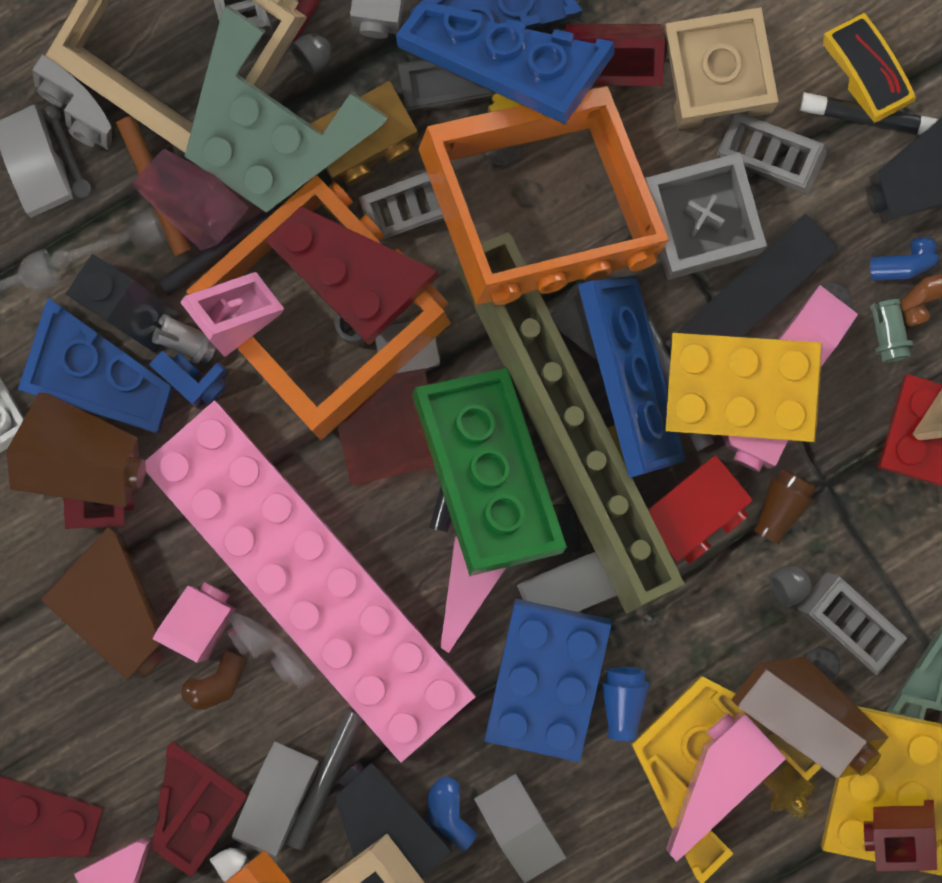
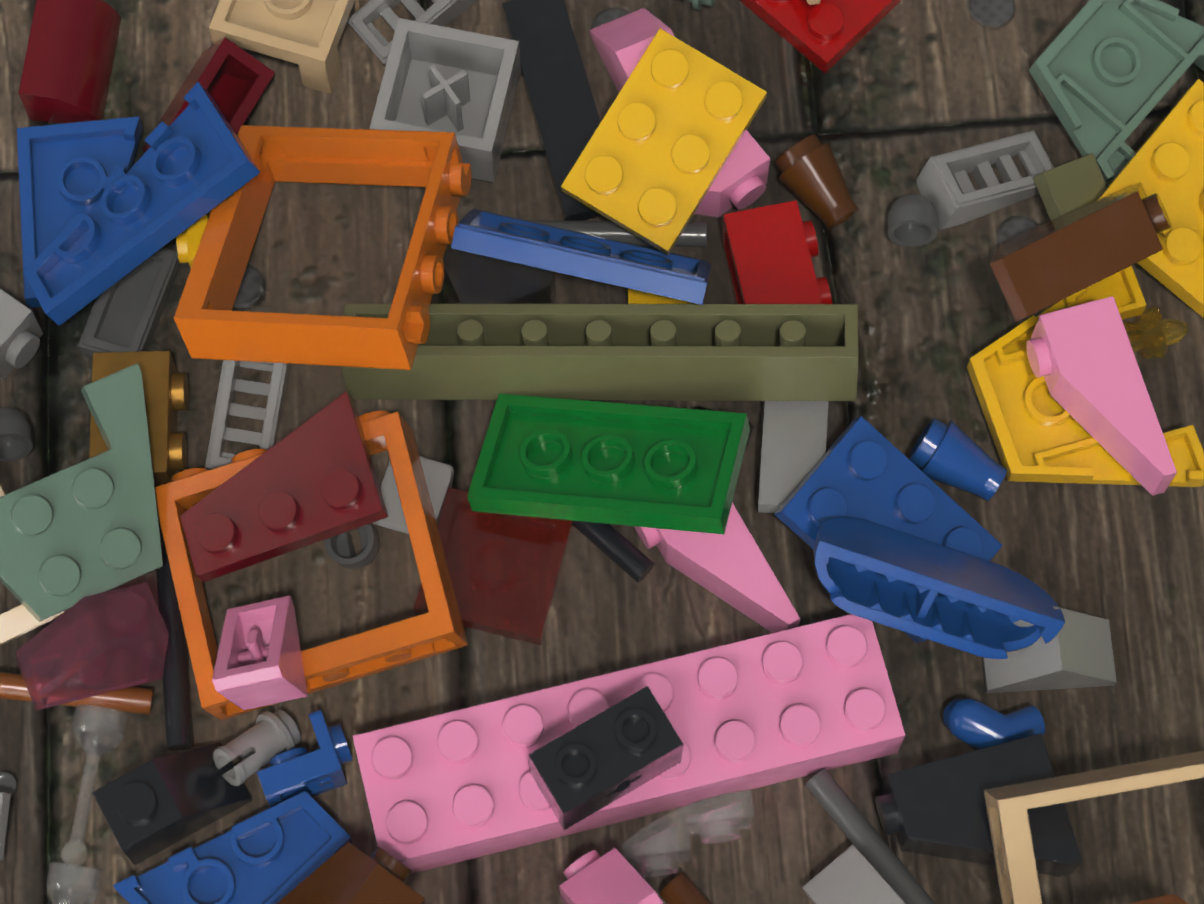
camera: 65 degrees left, 15 degrees down
(271, 576) = (605, 757): none -> black brick
(512, 732) = (931, 589): none -> blue brick
(871, 686) = (1070, 186): none -> olive tile

